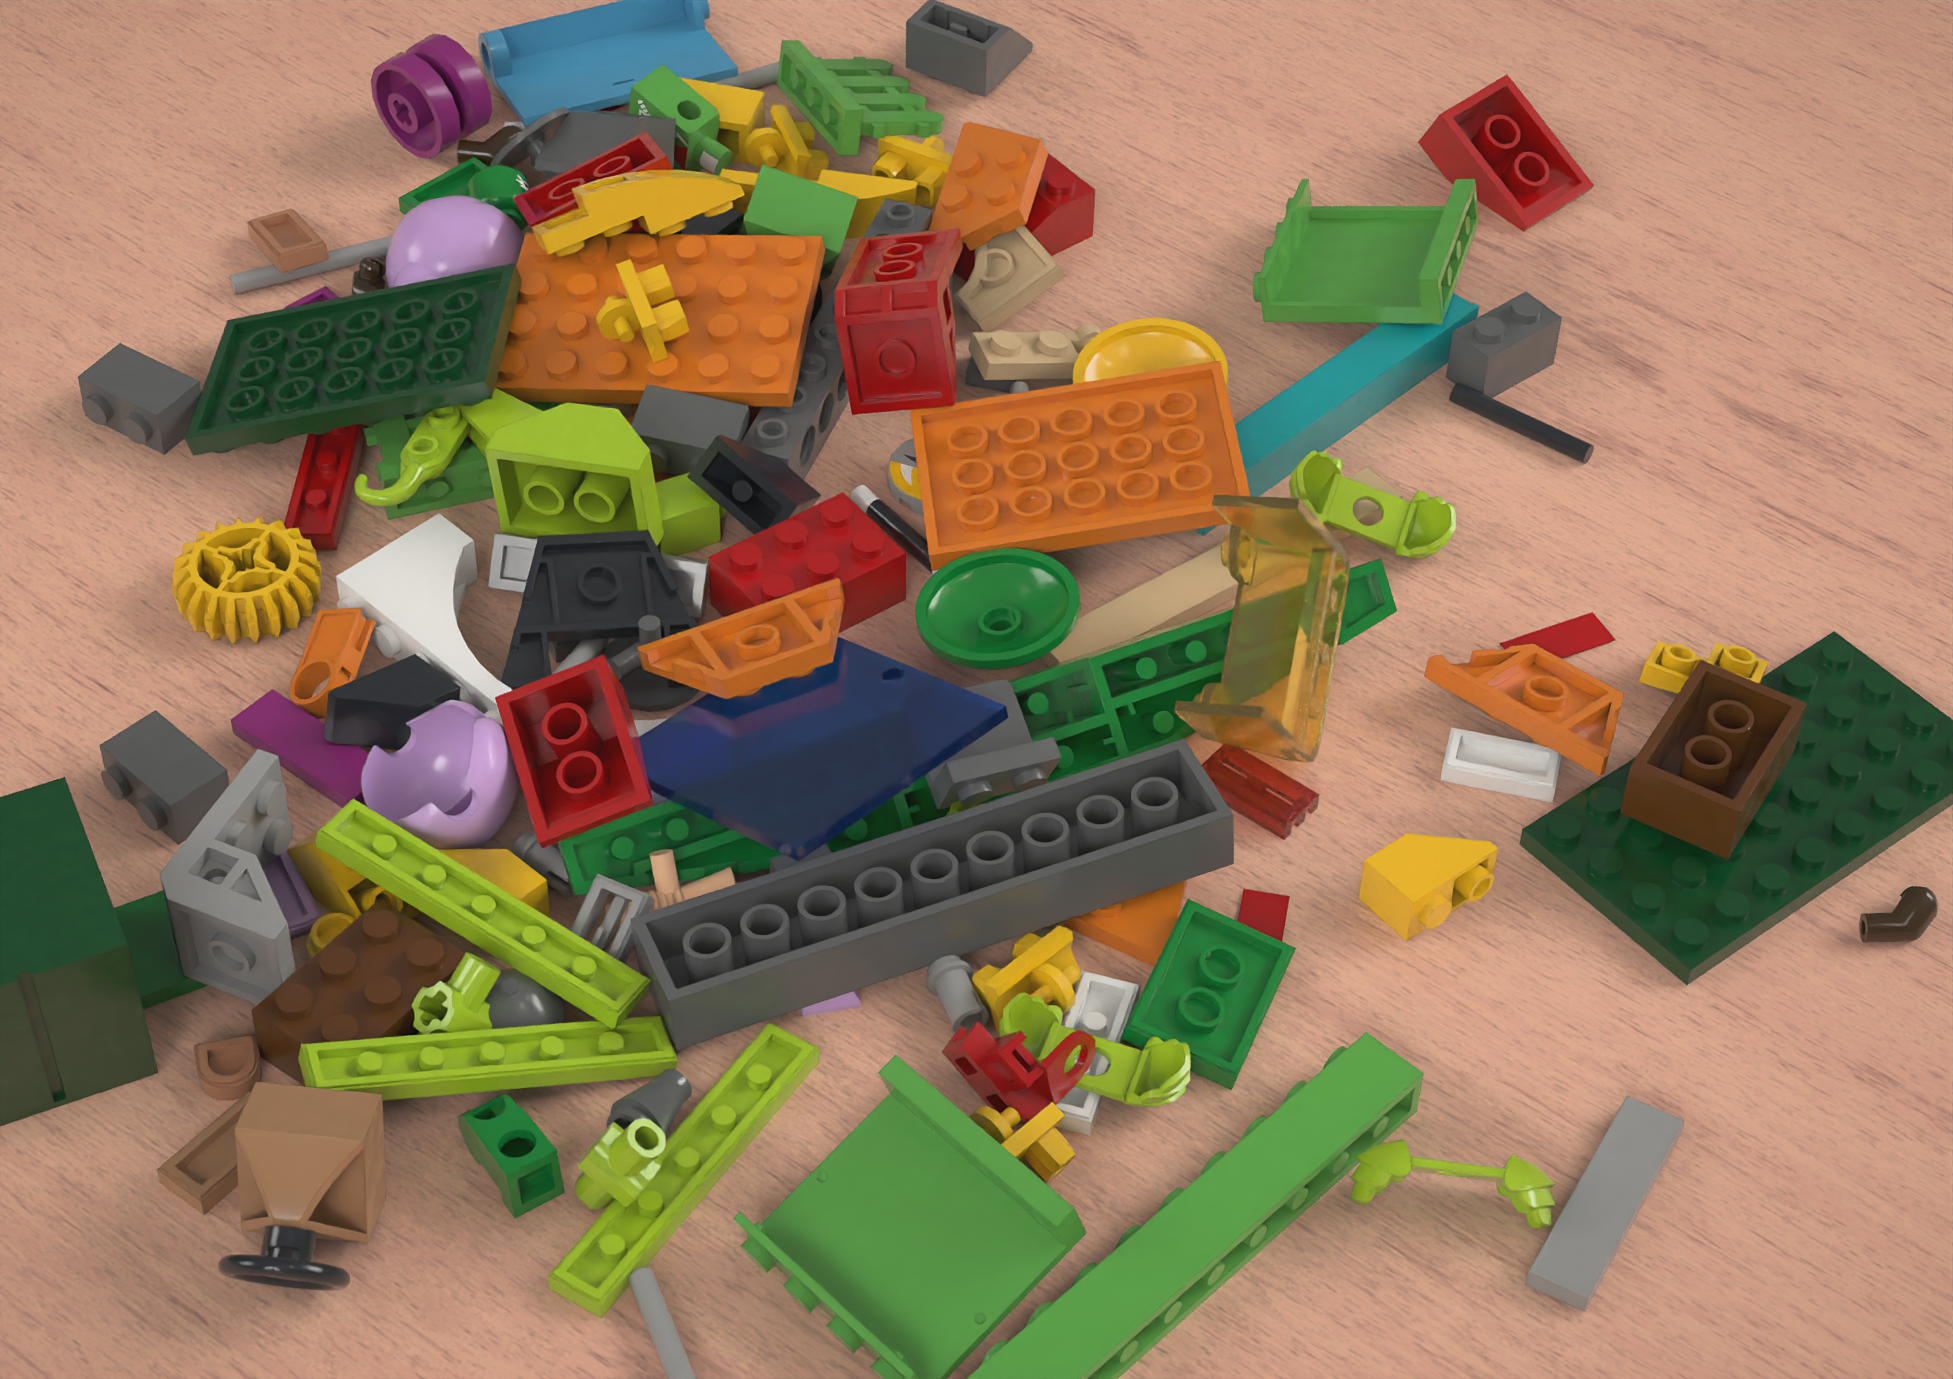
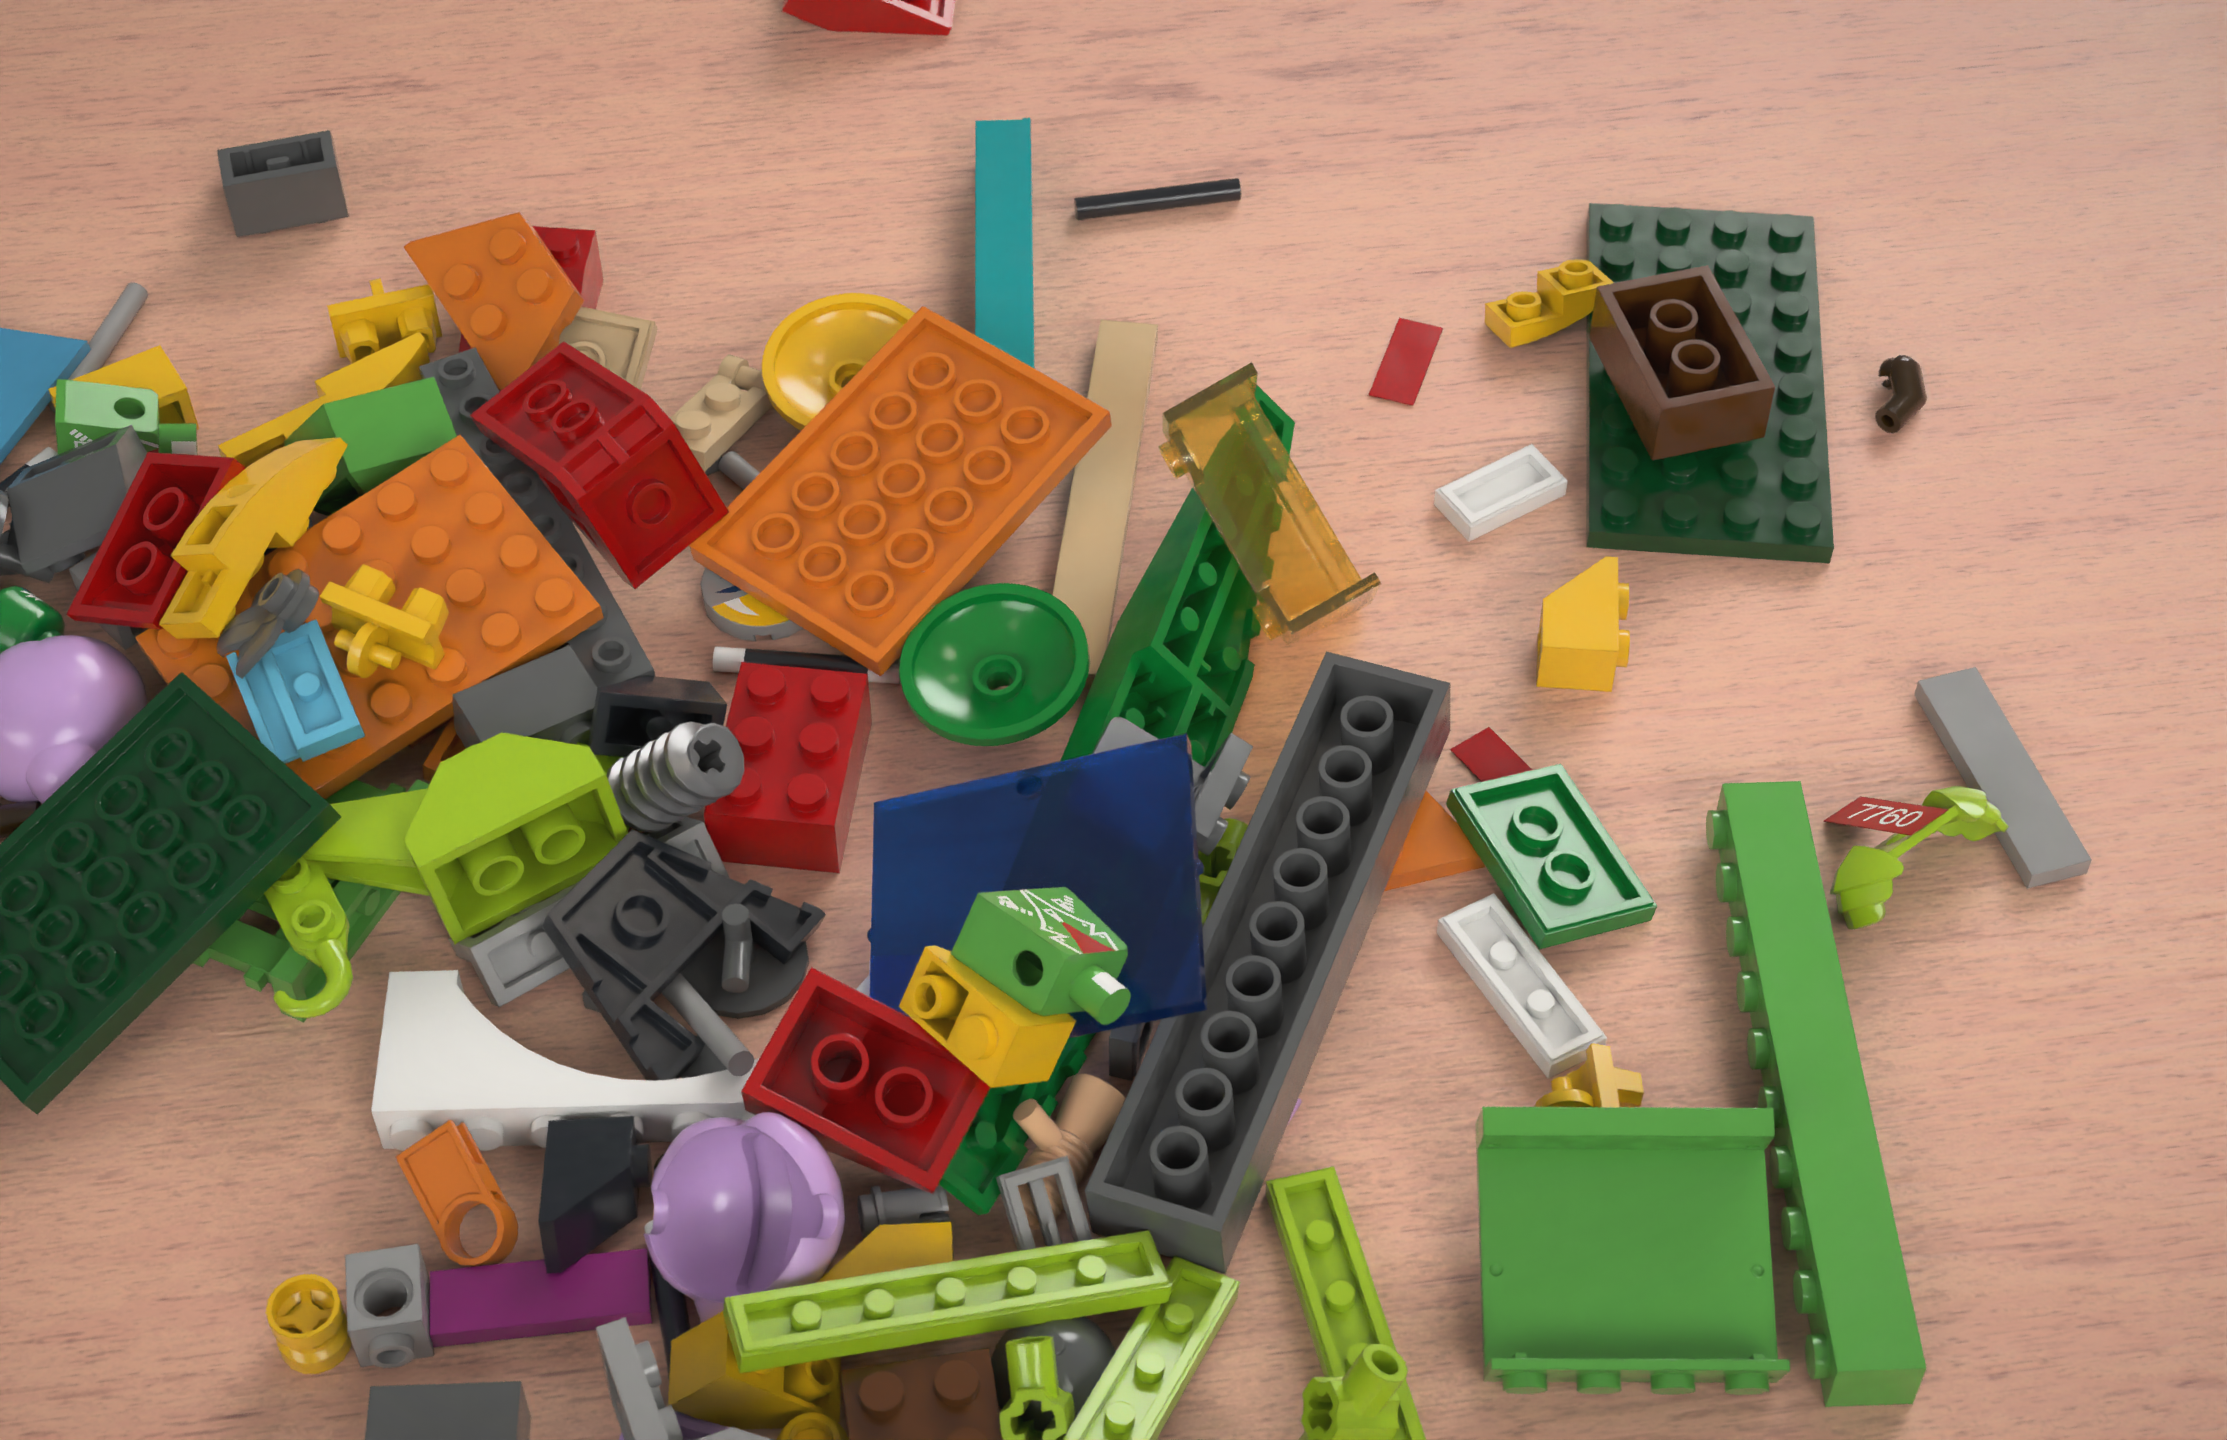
camera: 45 degrees left, 5 degrees up
(180, 663) = (309, 1323): none -> yellow wheel
(225, 684) = (384, 1281): none -> light grey brick
(246, 580) = (218, 1198): yellow gear -> none
(325, 485) = (218, 1050): red tile -> none
(556, 319) = (298, 697): none -> medium azure plate
(592, 257) = (277, 606): none -> dark grey plate
(656, 1101) = (1281, 1346): dark grey cone -> none
(663, 762) = (982, 1023): none -> yellow slope
(708, 518) = (676, 775): none -> flat silver piece
(733, 744) = (1045, 952): none -> bright green torso
(753, 645) = (866, 859): orange wing -> none
(786, 146) = (233, 388): yellow hips -> none
(852, 98) = (242, 299): bright green fence -> none
(951, 981) = (1374, 1023): light grey pin -> none
(1010, 1076) = (1521, 1050): red piece -> none
(1038, 968) = (1427, 957): yellow hips -> none
(1134, 1076) = (1603, 964): lime piece -> none
(1249, 794) = (1359, 645): clear red tile -> none
(1366, 260) = (895, 137): bright green panel -> none
(1406, 527) = (1199, 345): lime piece -> none
(1465, 1147) = (1886, 815): none -> red sticker
(1504, 346) = (1078, 140): dark grey brick -> none
(1539, 697) = (1476, 414): orange wing -> none

